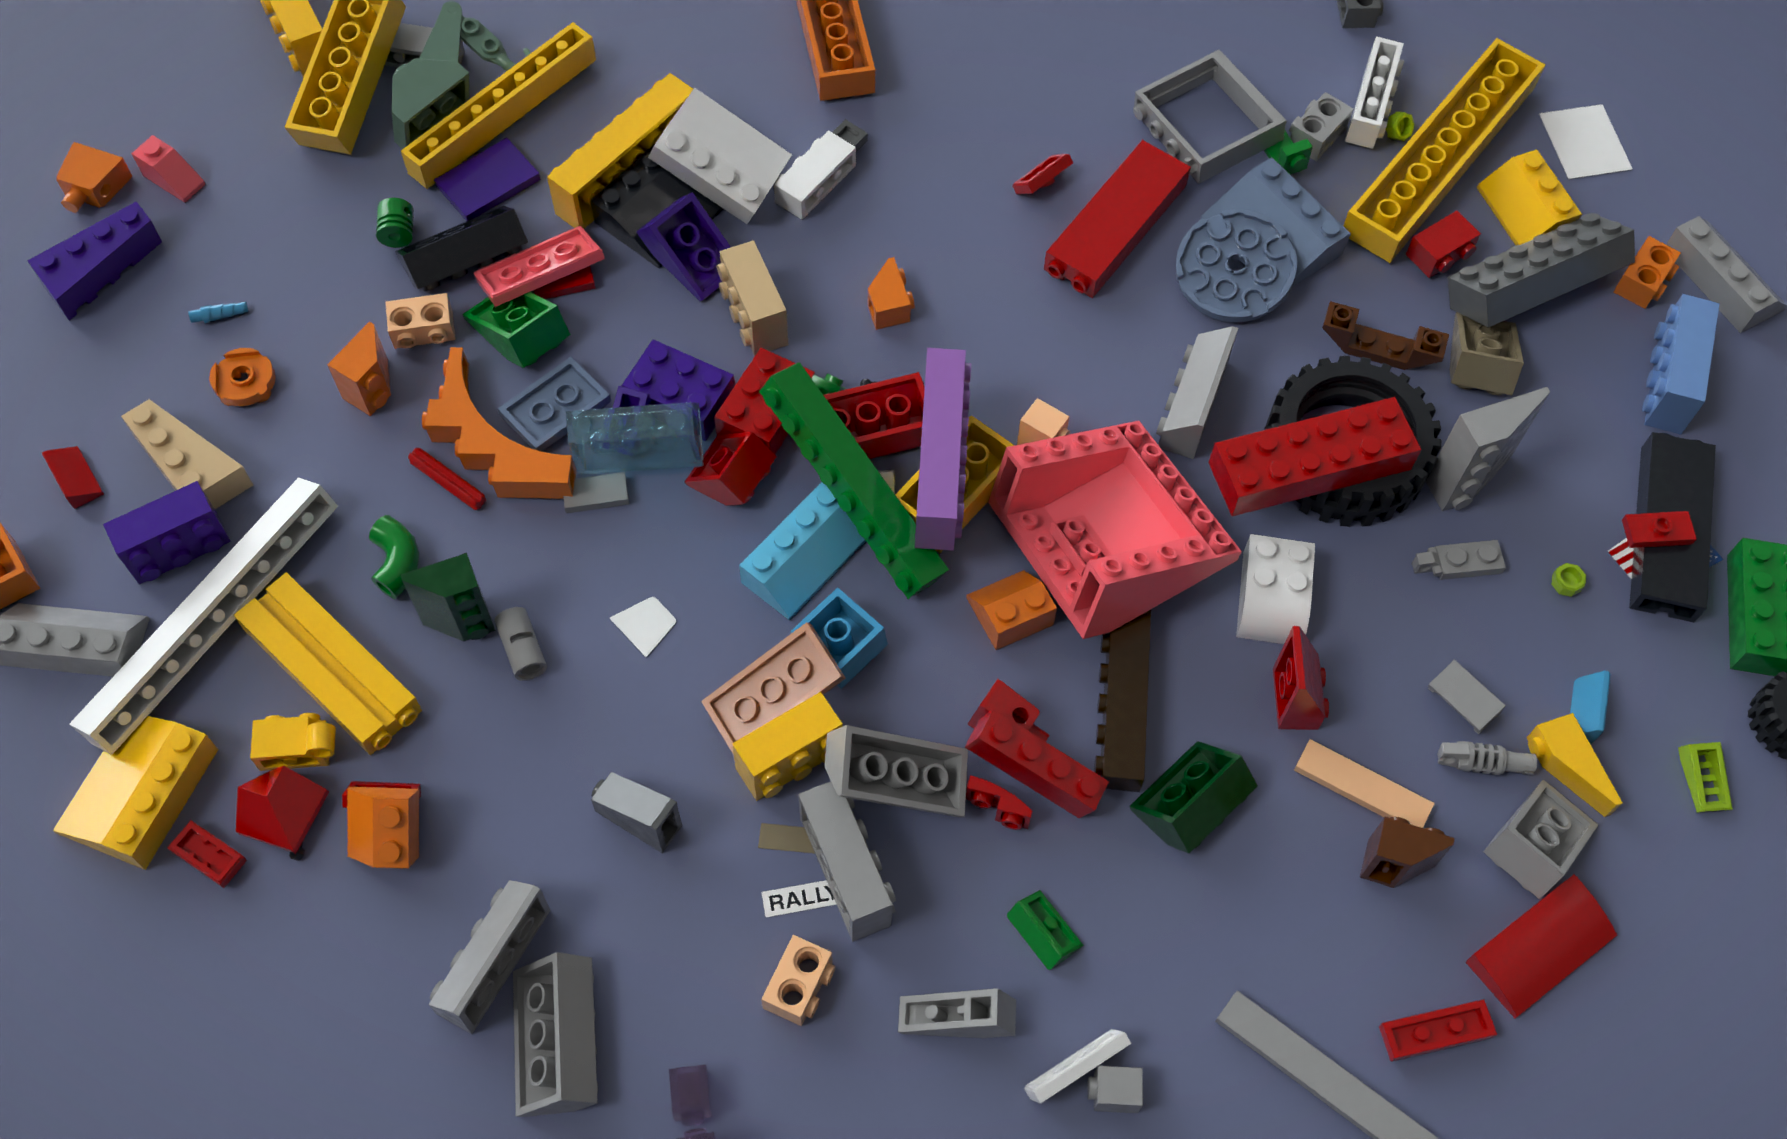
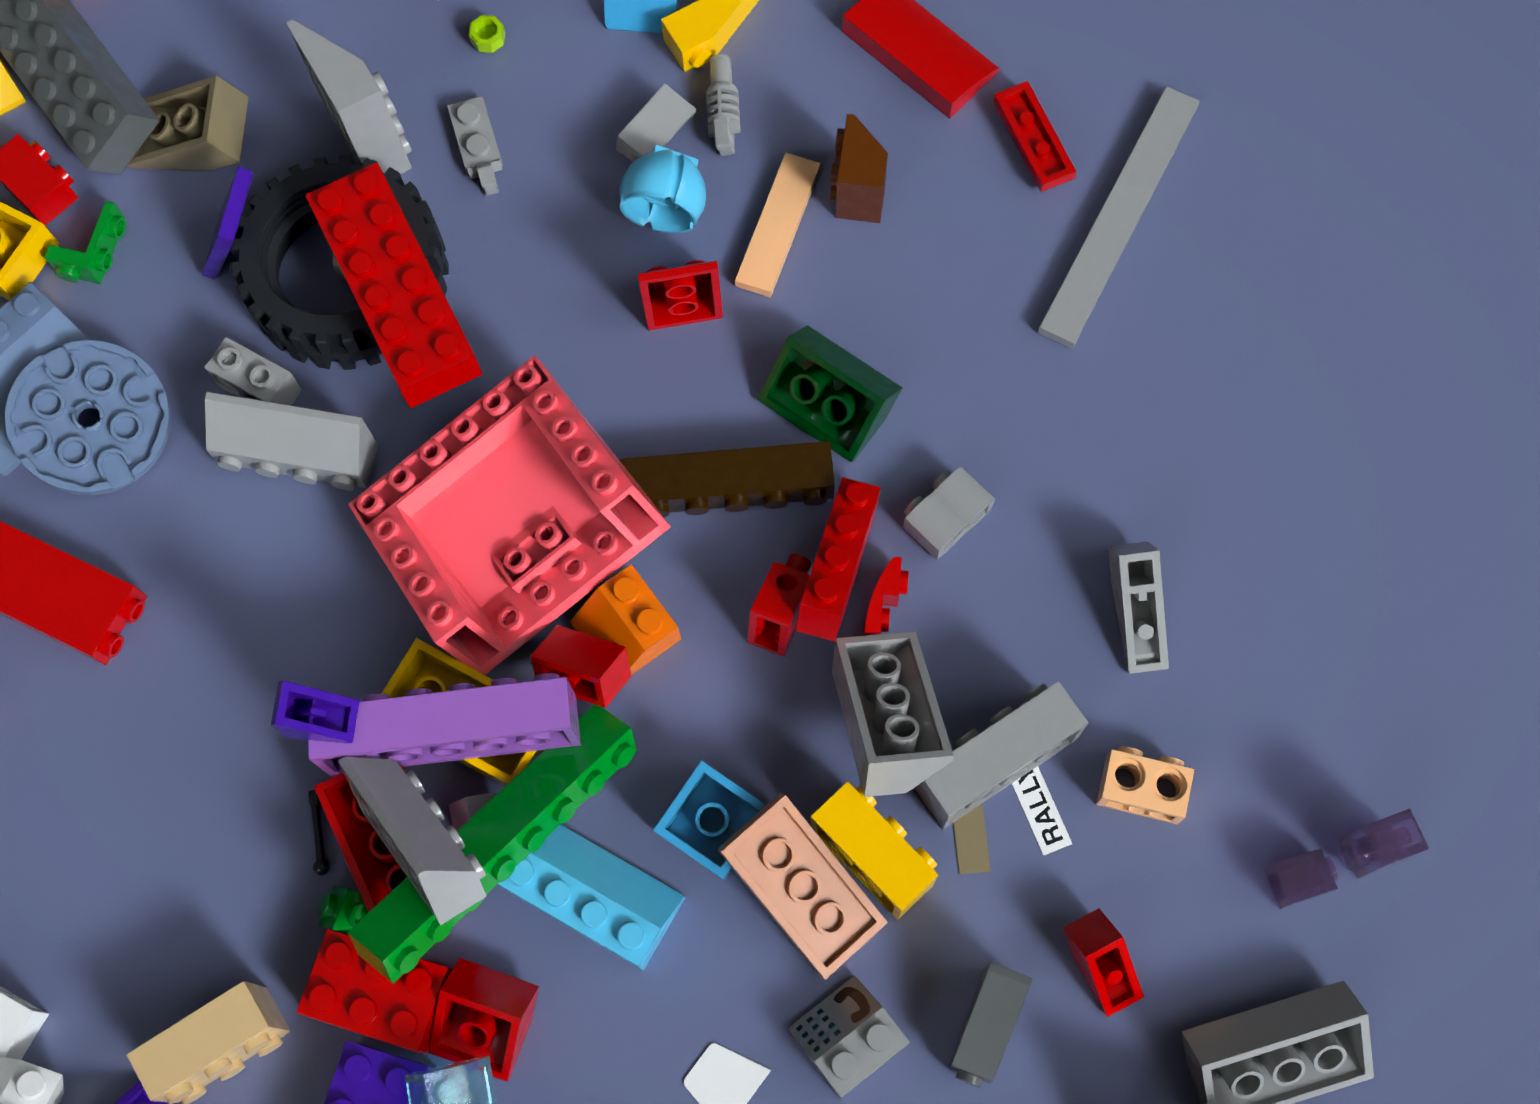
camera: 95 degrees left, 10 degrees up
(653, 710) = (848, 1036): none -> light grey slope
(662, 911) = (1103, 961): none -> red slope
(860, 408) = (415, 835): none -> light grey slope
(888, 298) = (181, 859): orange slope -> none
(956, 345) = (314, 714): none -> dark purple slope
(981, 563) = (591, 665): none -> red brick
(1042, 423) = (383, 617): light nougat brick -> none
(1044, 929) = (1016, 532): green slope -> none
(1069, 871) = (947, 512): none -> light grey brick
(1077, 1065) = (1163, 473): white tile -> none
(1116, 1089) = (1176, 431): light grey brick -> none
(1256, 374) = (251, 375): none -> light grey brick
(1275, 588) = (560, 324): white brick -> none
(1380, 285) = (98, 258): none -> green bracket
(1380, 346) = (191, 235): reddish brown slope -> none
(1398, 686) = (663, 190): none -> medium azure piece
(1400, 359) = (227, 223): none -> dark purple tile
(1541, 839) = (807, 48): light grey slope -> none

